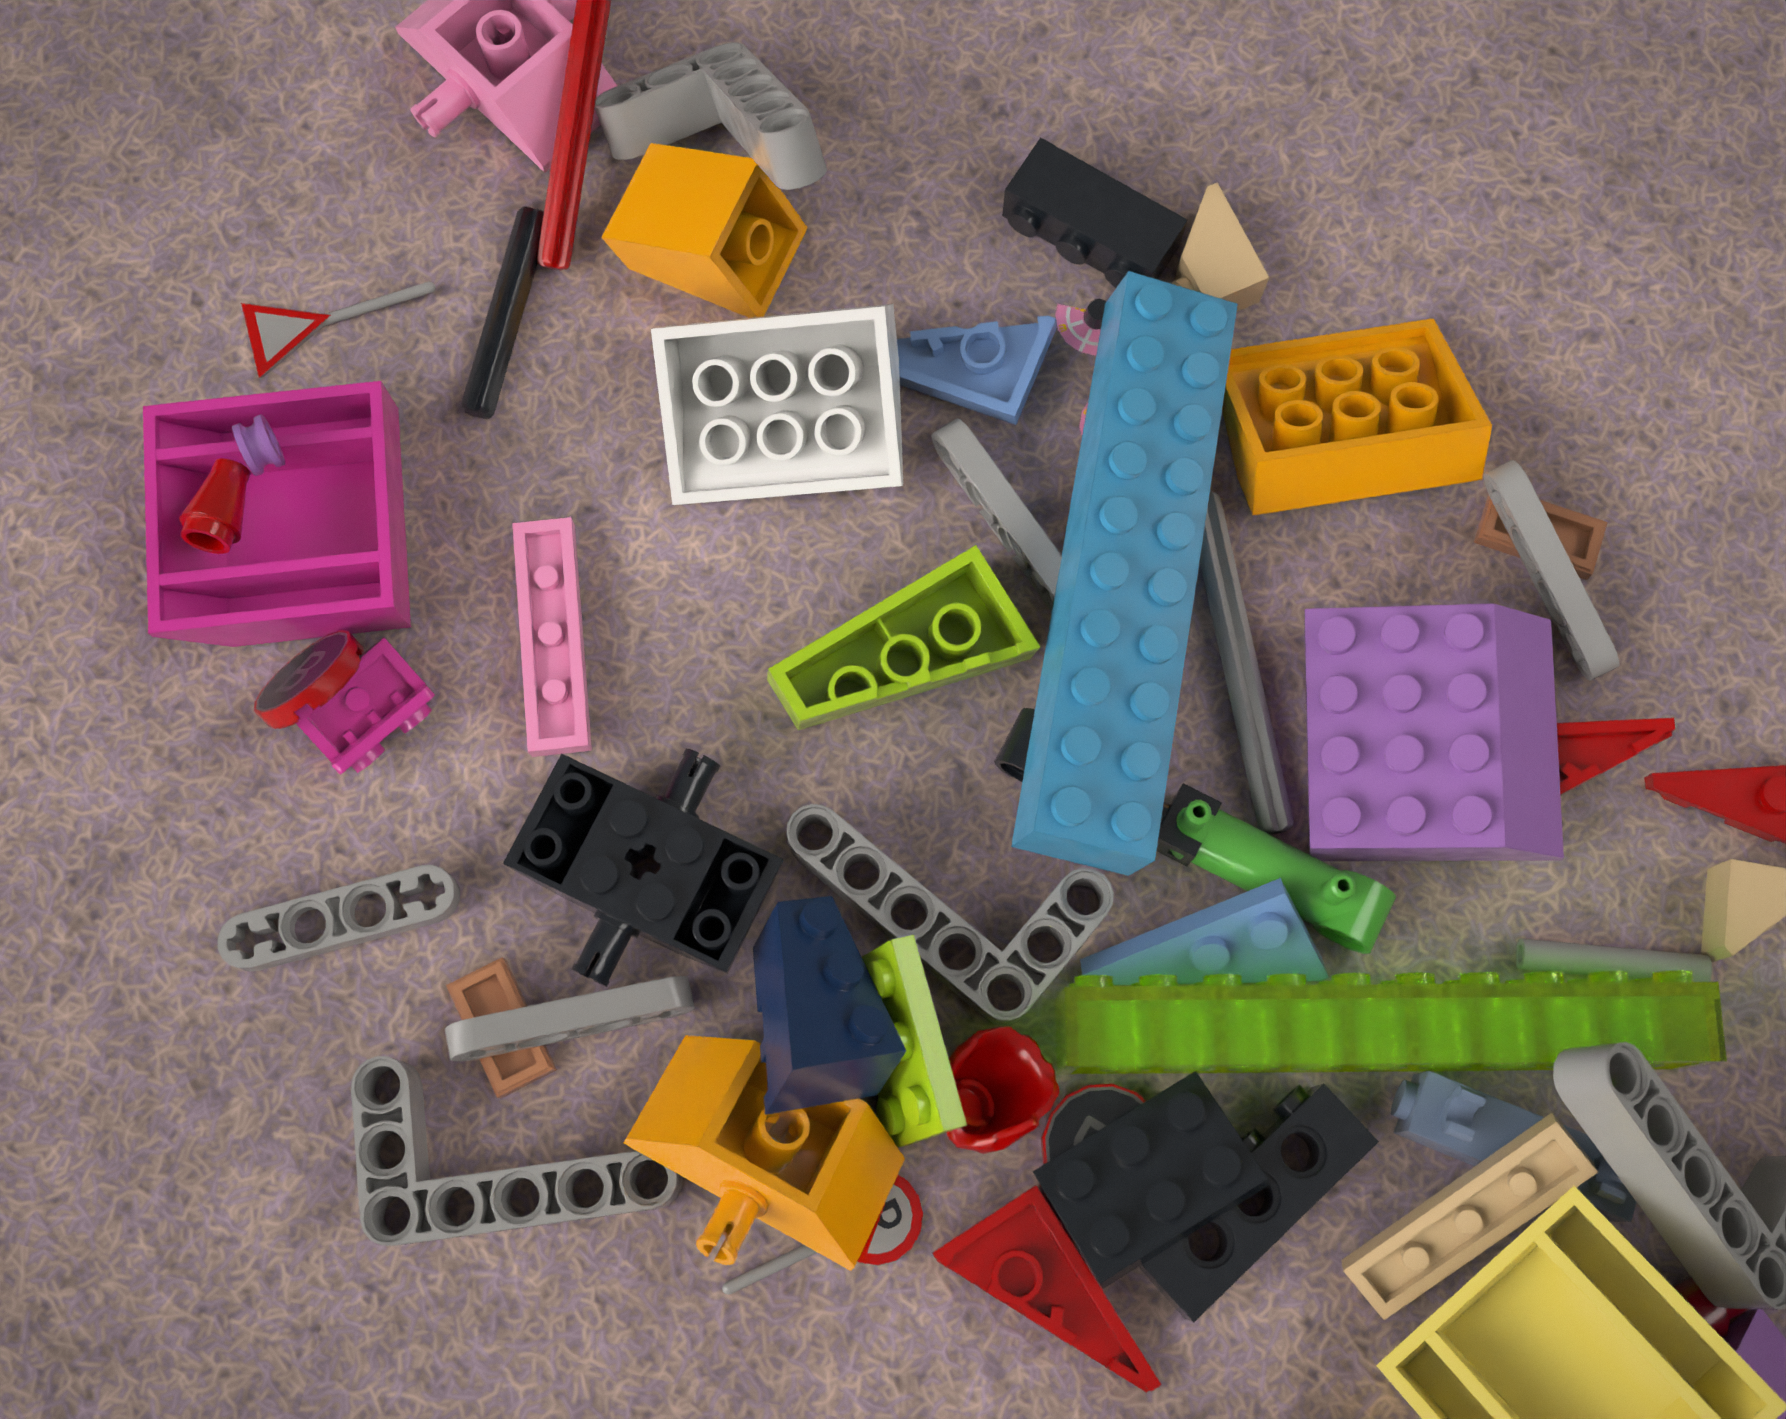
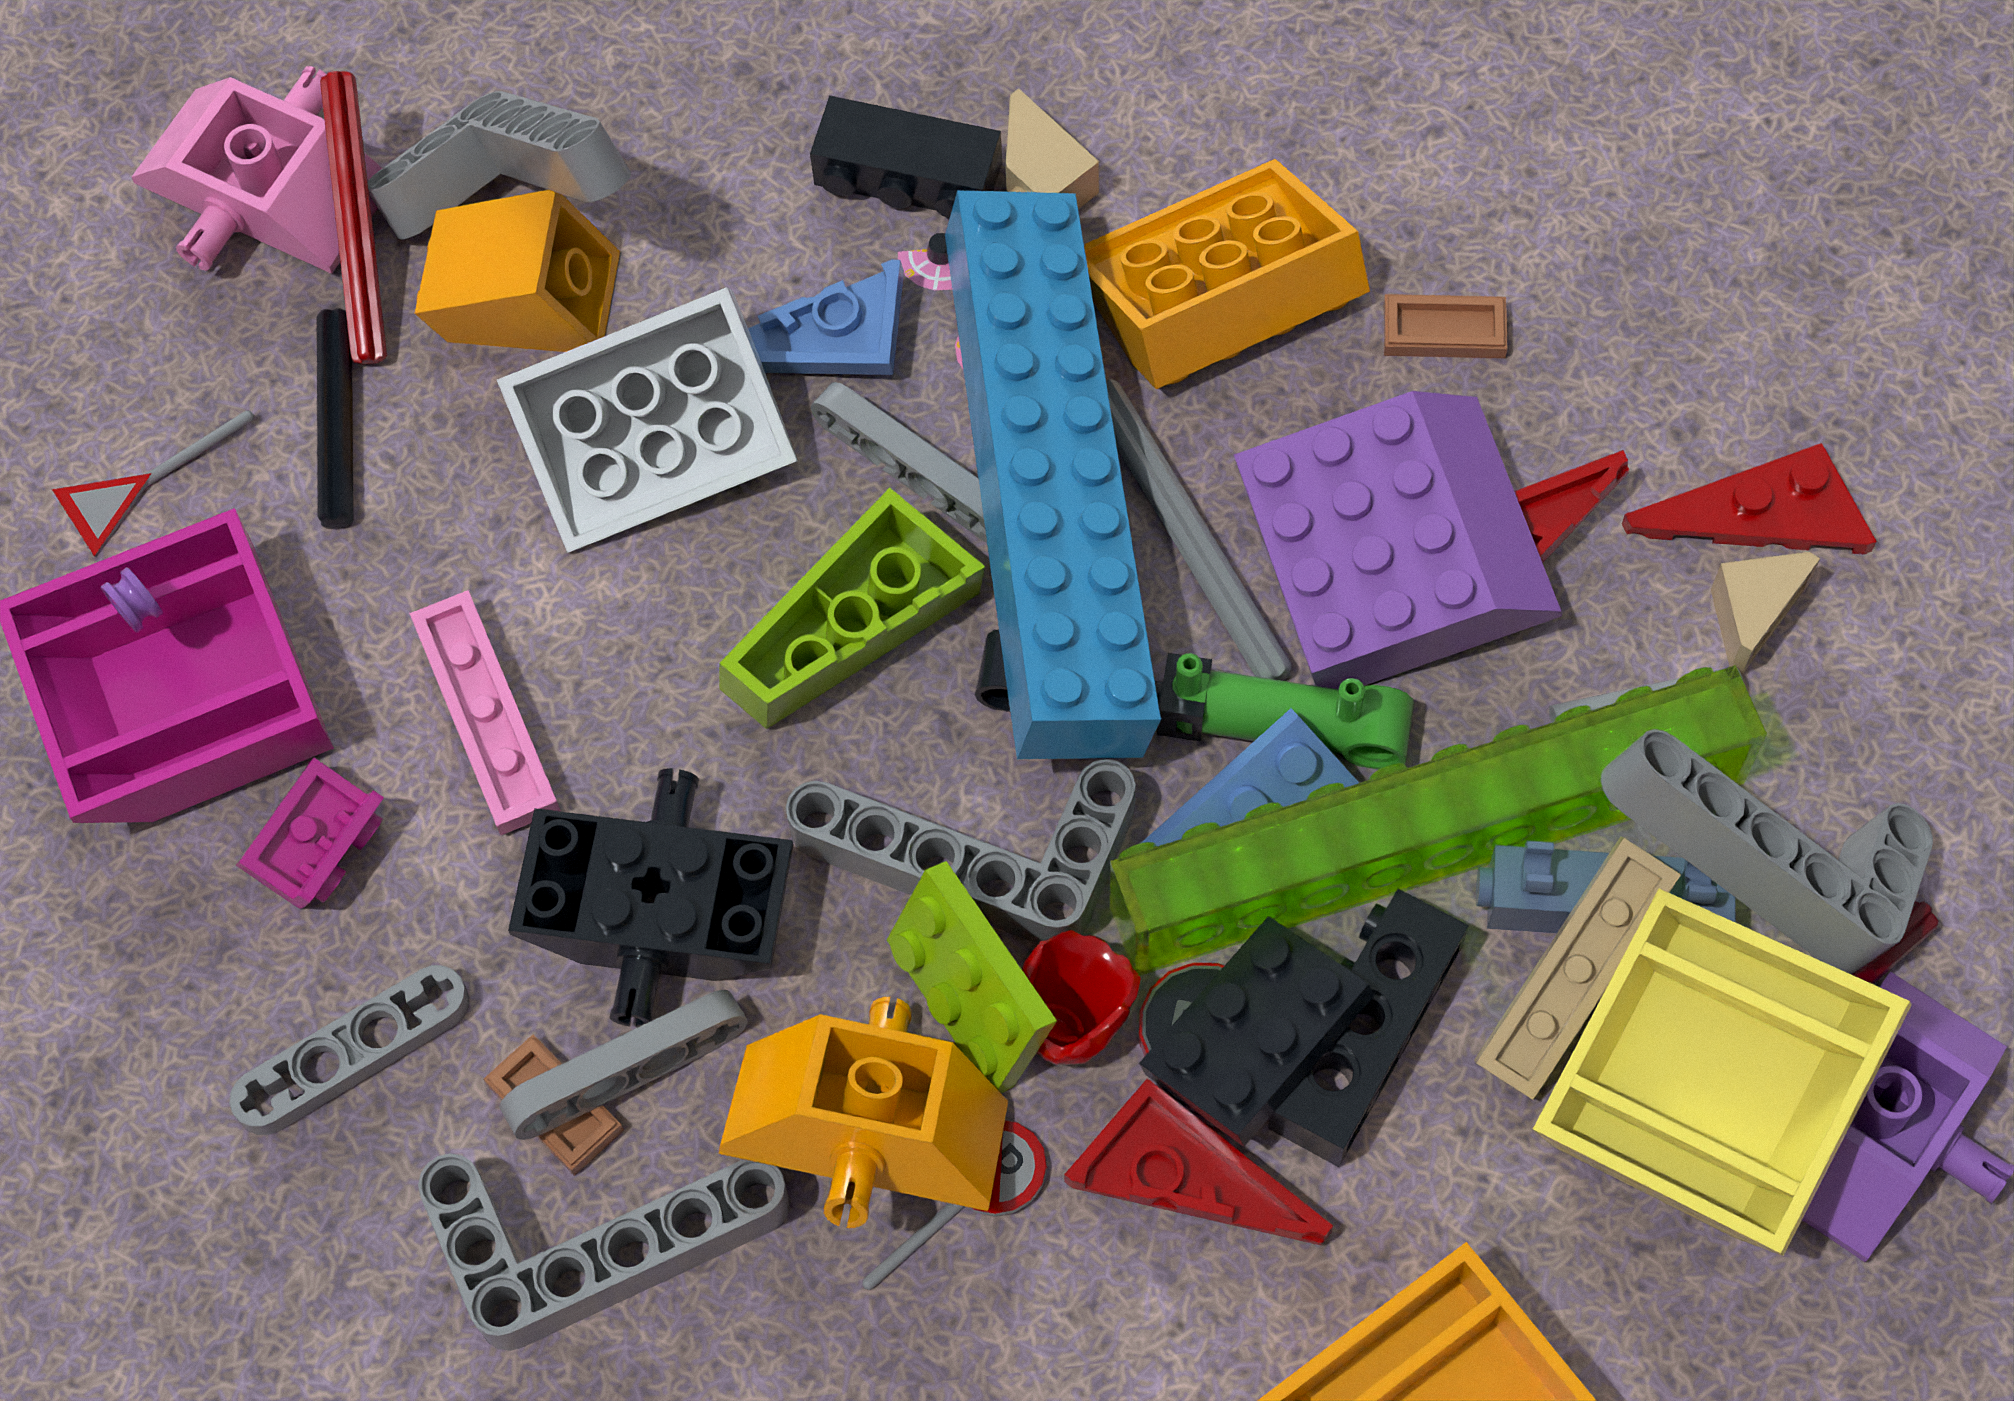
camera: 15 degrees left, 10 degrees down
(217, 509) = (107, 677): red cone -> none
(309, 679) = (250, 813): tile -> none
(819, 1010) = (876, 965): dark blue wedge -> none
(1551, 570) = (1463, 353): light grey beam -> none

